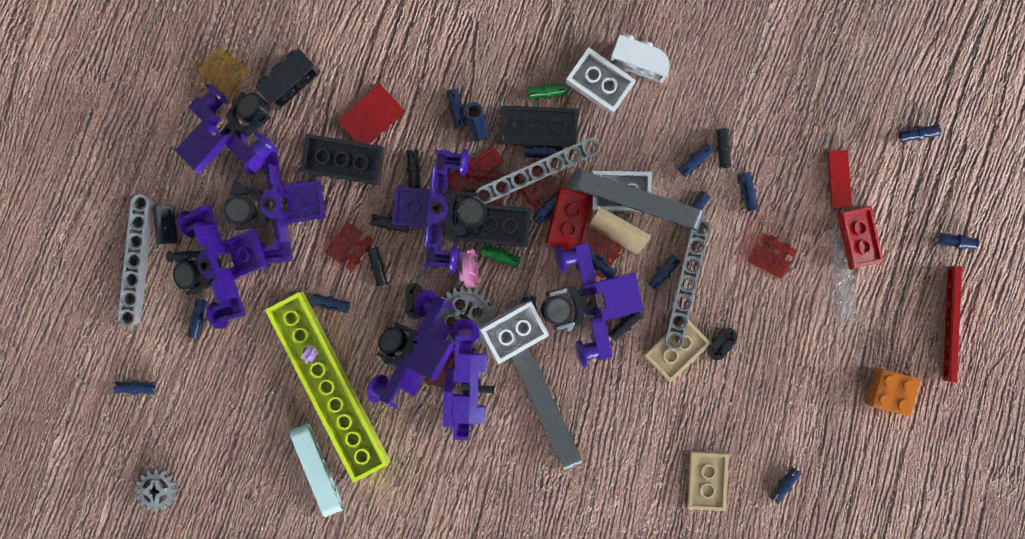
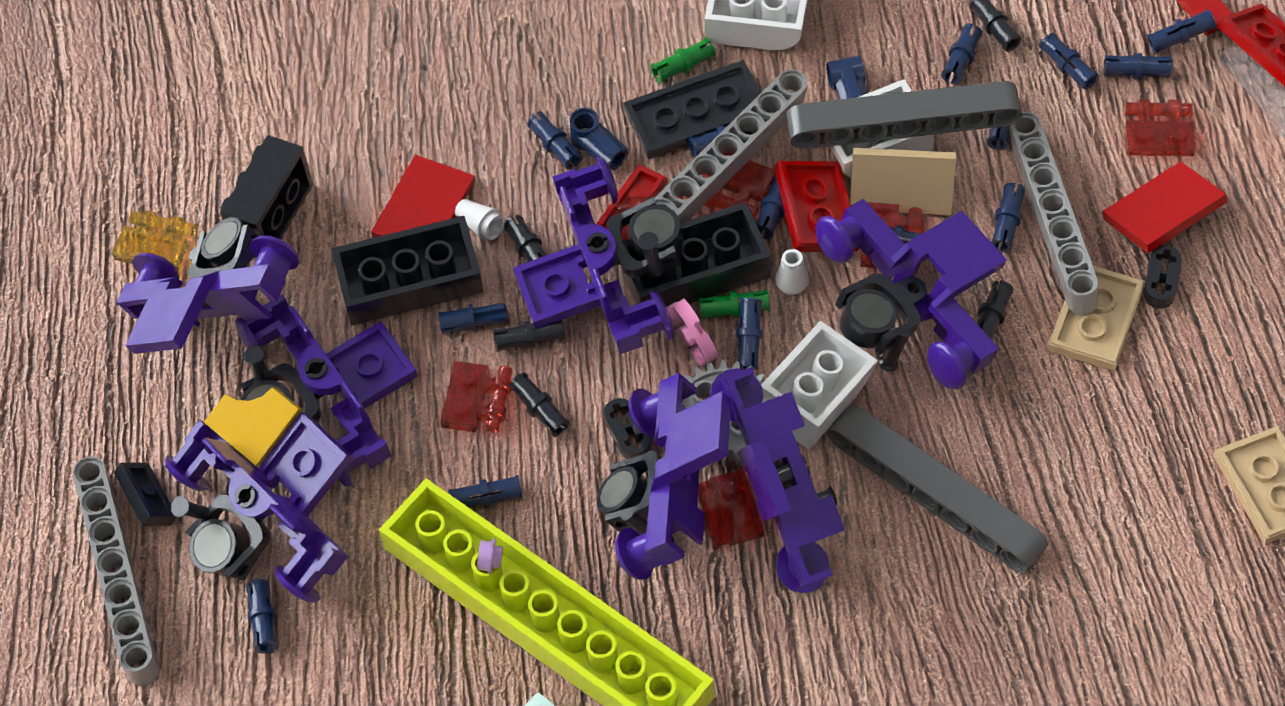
camera: 25 degrees left, 30 degrees down
(226, 221) = (255, 424): none -> yellow tile
(367, 199) = (471, 317): none -> dark blue axle
(396, 141) = (481, 219): none -> white cone
(498, 279) = (749, 333): none -> dark blue pin
(534, 259) = (792, 273): none -> white cone
(626, 147) = (847, 77): none -> dark blue piece
(745, 306) = (1164, 207): none -> red tile
(783, 212) = (1137, 66): none -> dark blue pin
(808, 203) = (1181, 31): none -> dark blue pin

